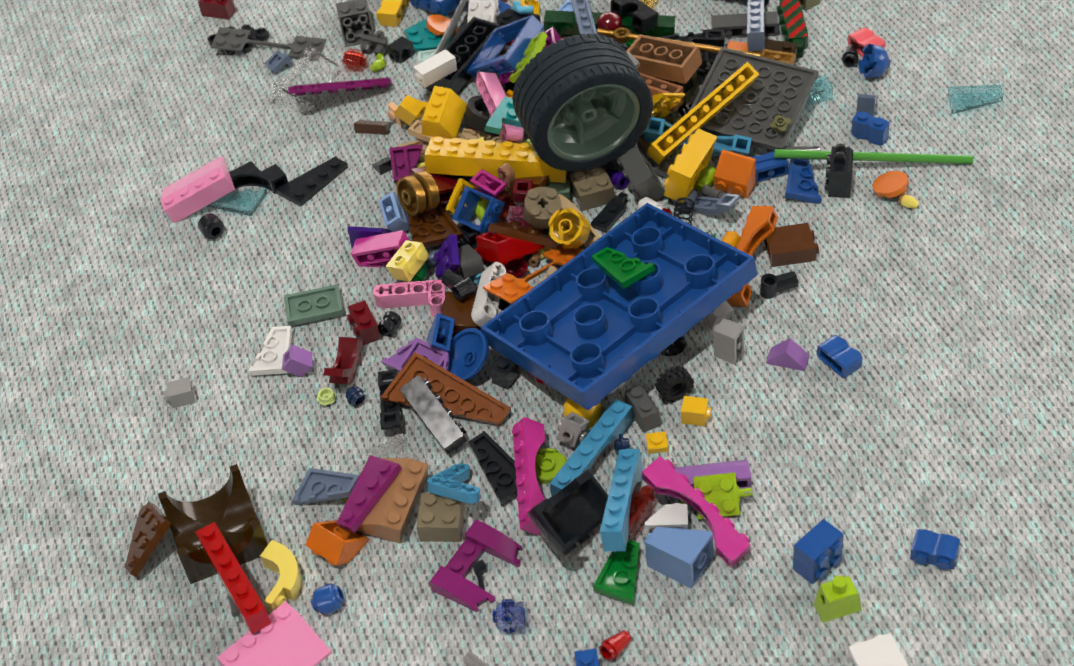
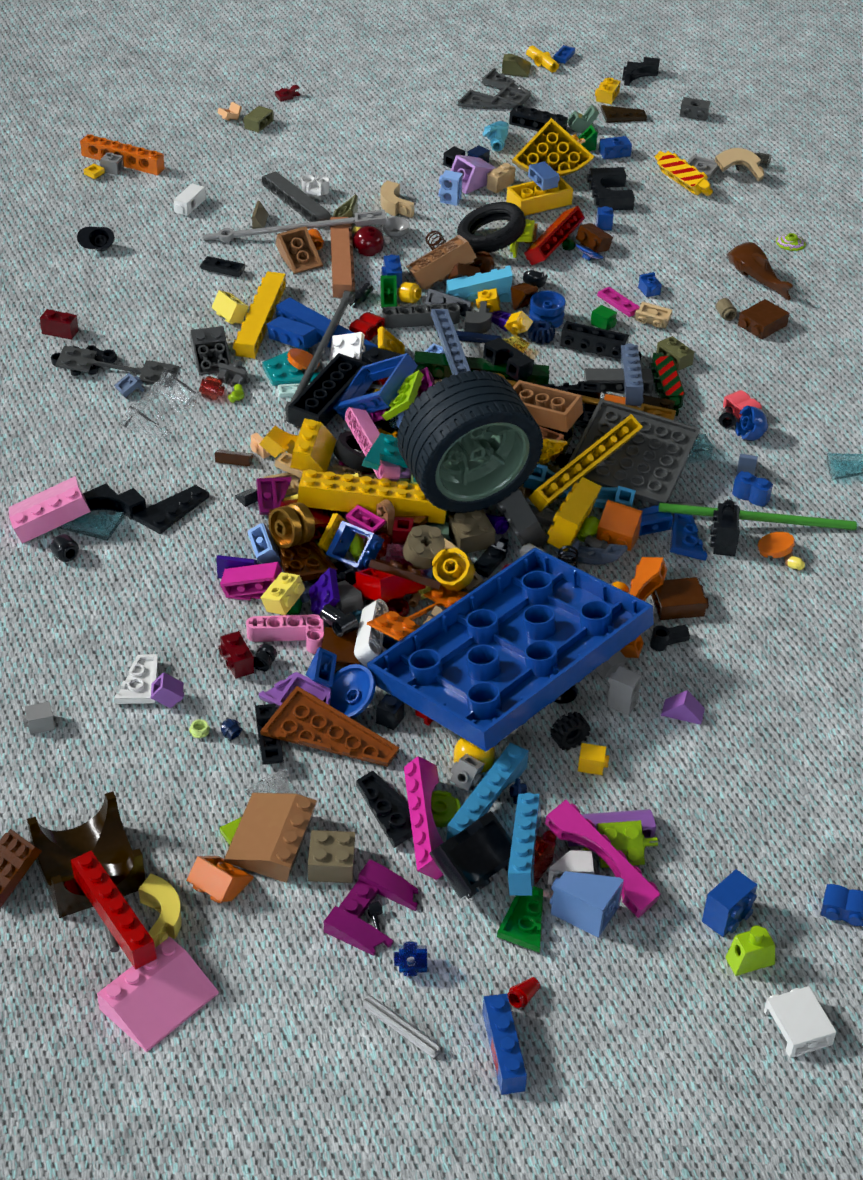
camera: 10 degrees left, 5 degrees down
(313, 305) = (180, 634): sand green plate -> none
(324, 486) = (205, 819): sand blue wing -> none
(327, 599) = (213, 936): blue head -> none
(333, 87) = (190, 414): magenta wing -> none
(346, 361) = (220, 693): dark red arch -> none
(369, 488) = (253, 825): magenta wing -> none
(401, 50) = (261, 381): black brick -> none
(433, 414) = (319, 750): brick -> none
(434, 68) = (302, 401): white brick -> none
(450, 485) = (342, 821): dark azure beam -> none
(521, 9) = (390, 349): medium azure arm -> none
(609, 21) = (483, 364): dark red hair -> none
(621, 268) = (514, 610): green wing -> none
(644, 410) = (540, 757): dark grey brick -> none
(656, 442) = (553, 789): yellow plate -> none
(780, 124) = (664, 478): olive plate -> none
(839, 356) = (736, 711): blue brick -> none

